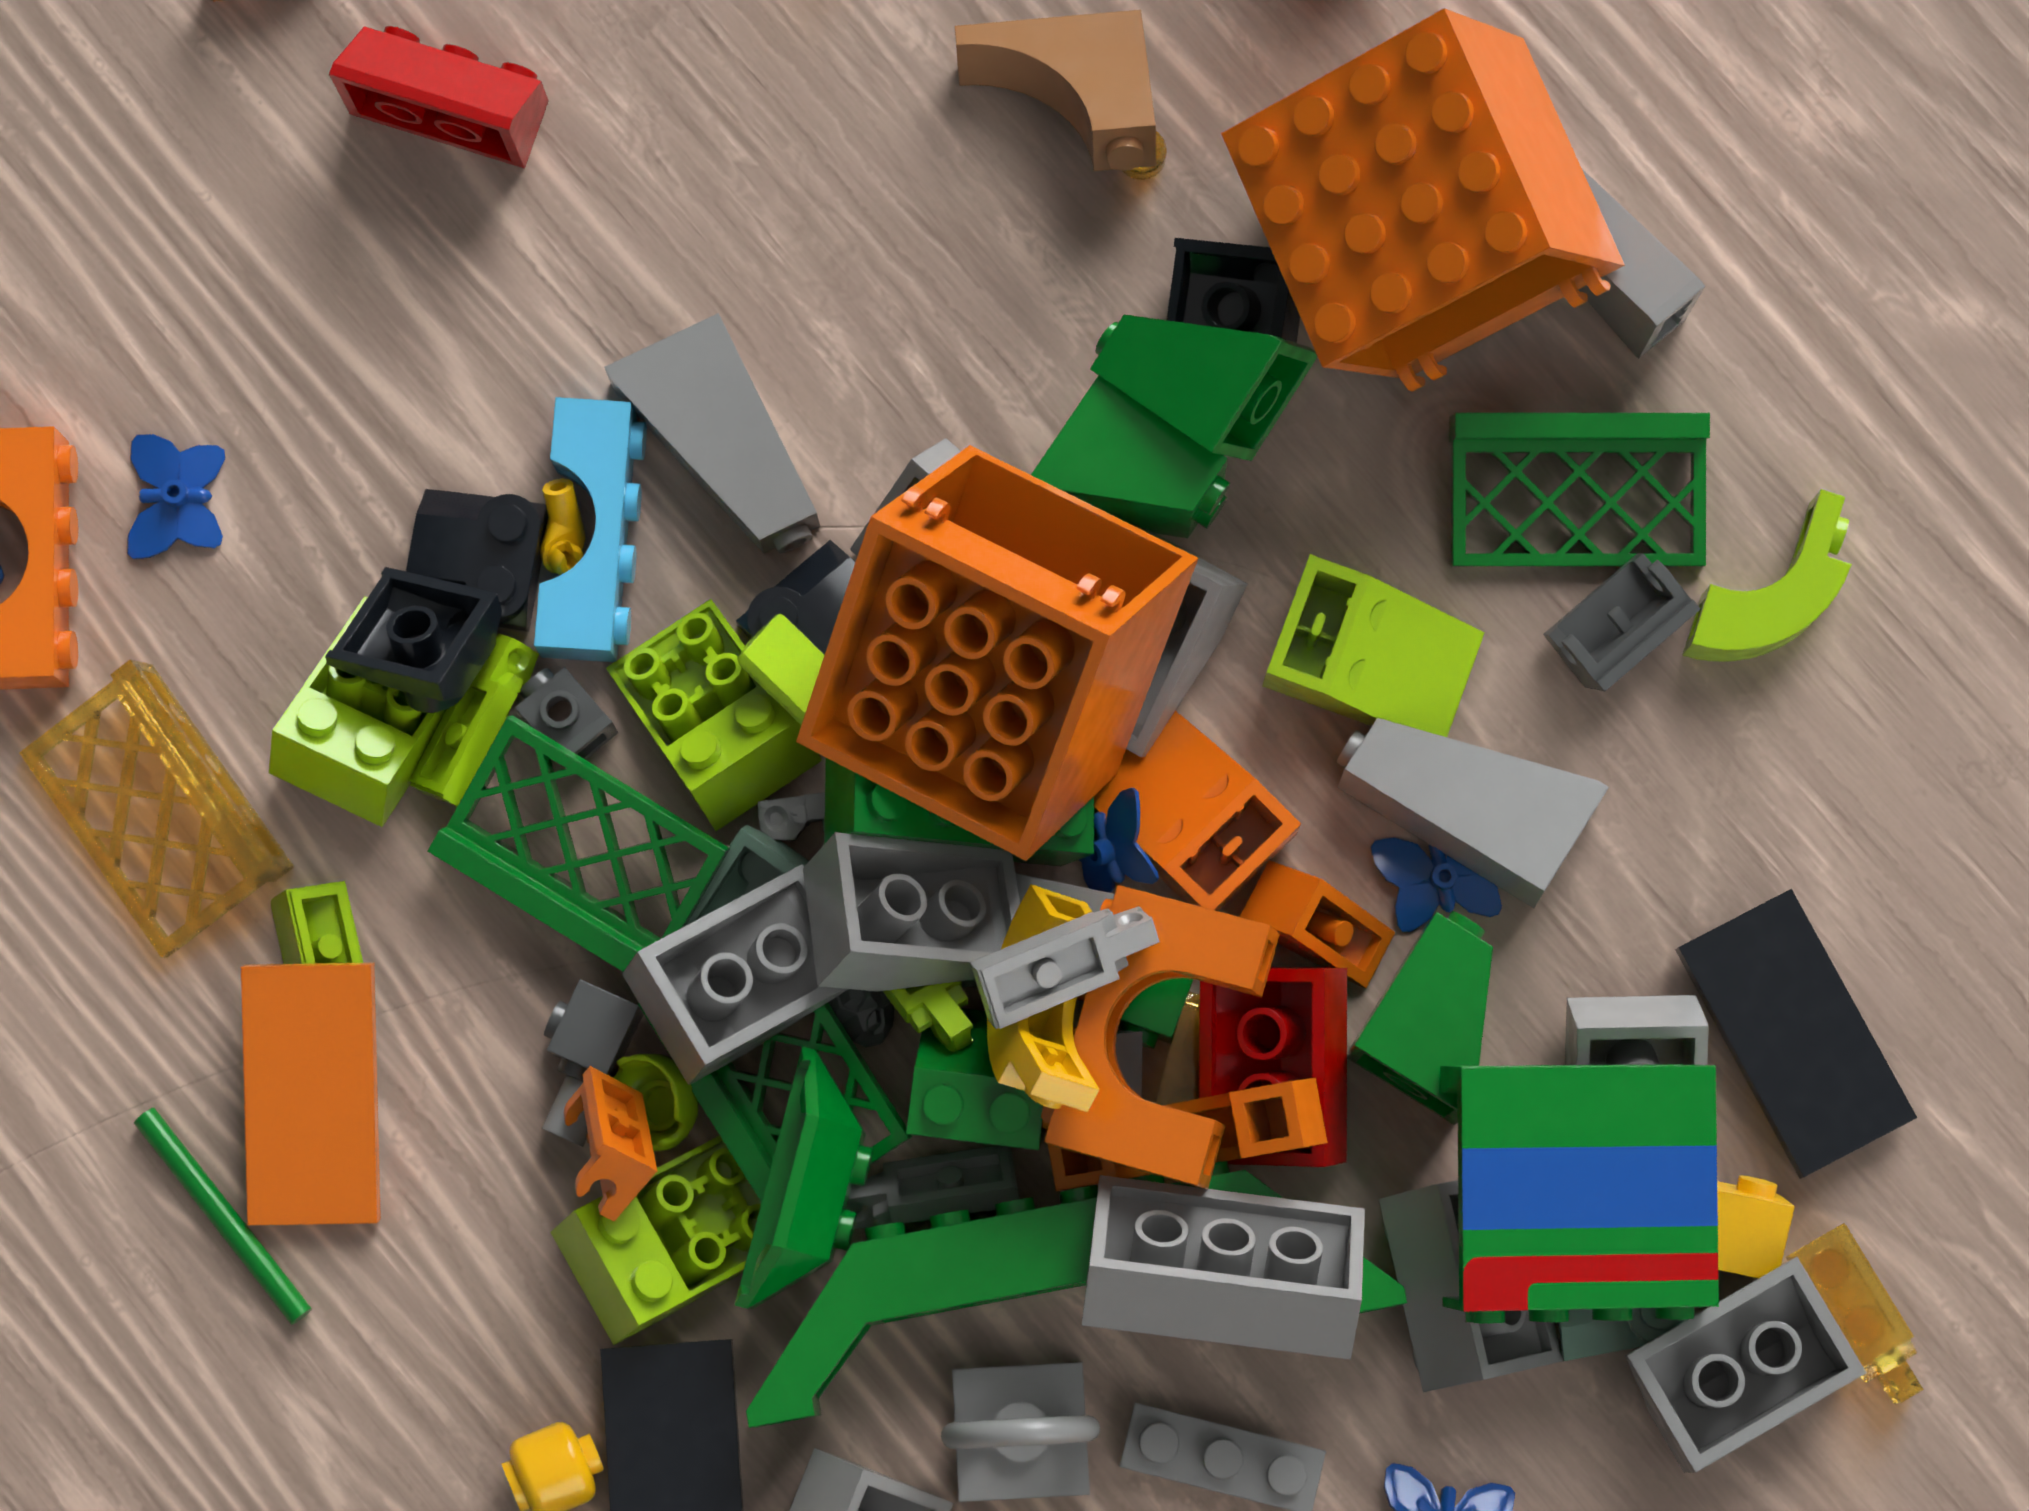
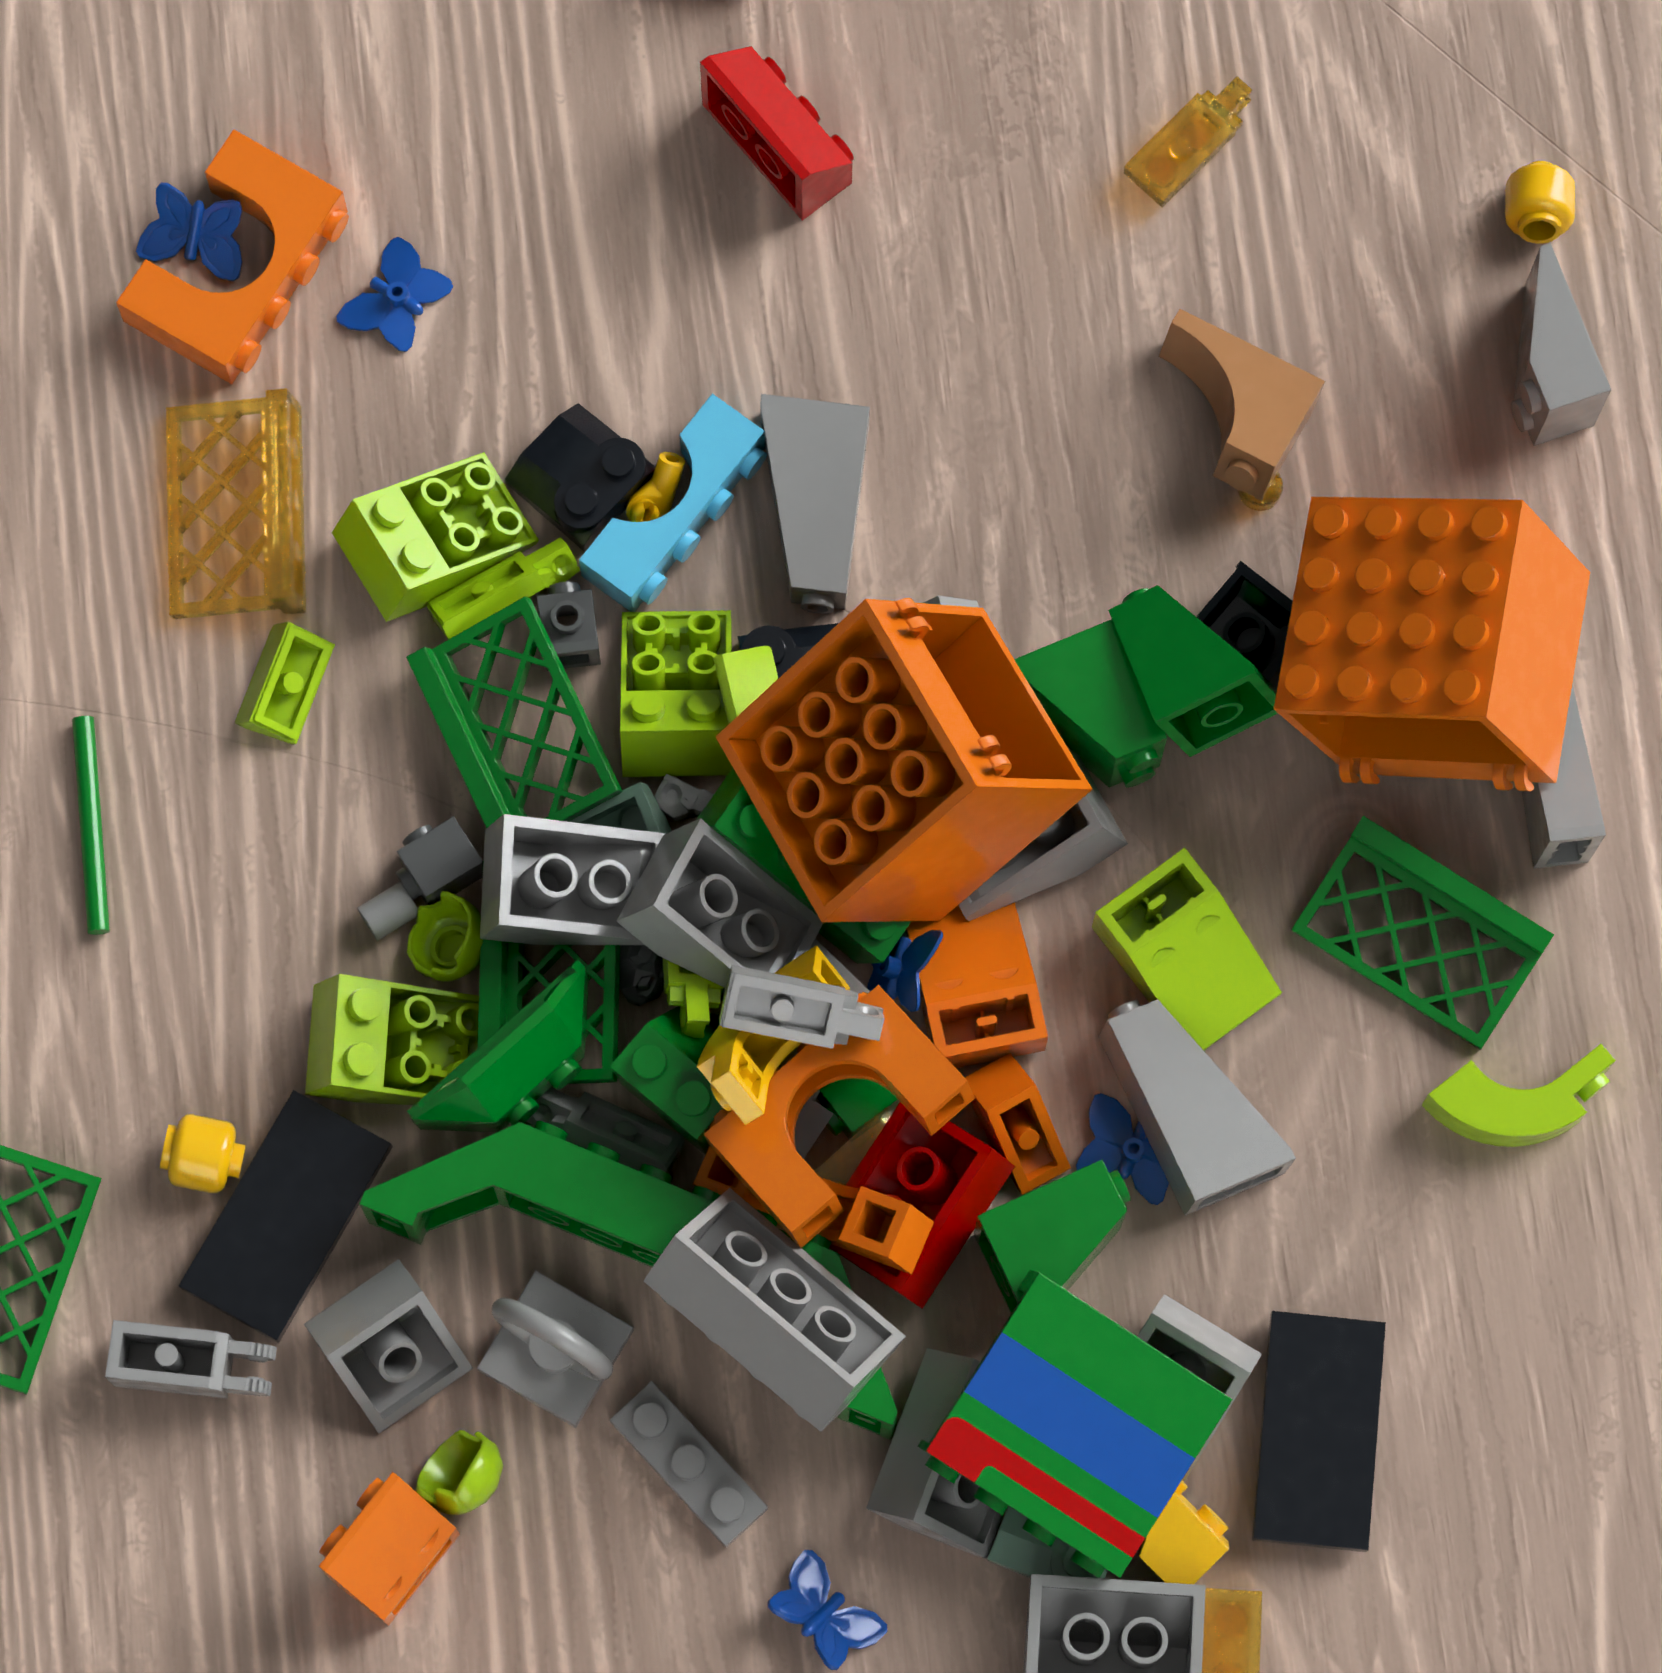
camera: 30 degrees right, 5 degrees down
(310, 1093) = (209, 777): orange tile -> none
(420, 638) = (501, 502): black slope -> none
(616, 1139) = (401, 942): orange hinge -> none
(1621, 622) = (1387, 1047): dark grey hinge -> none

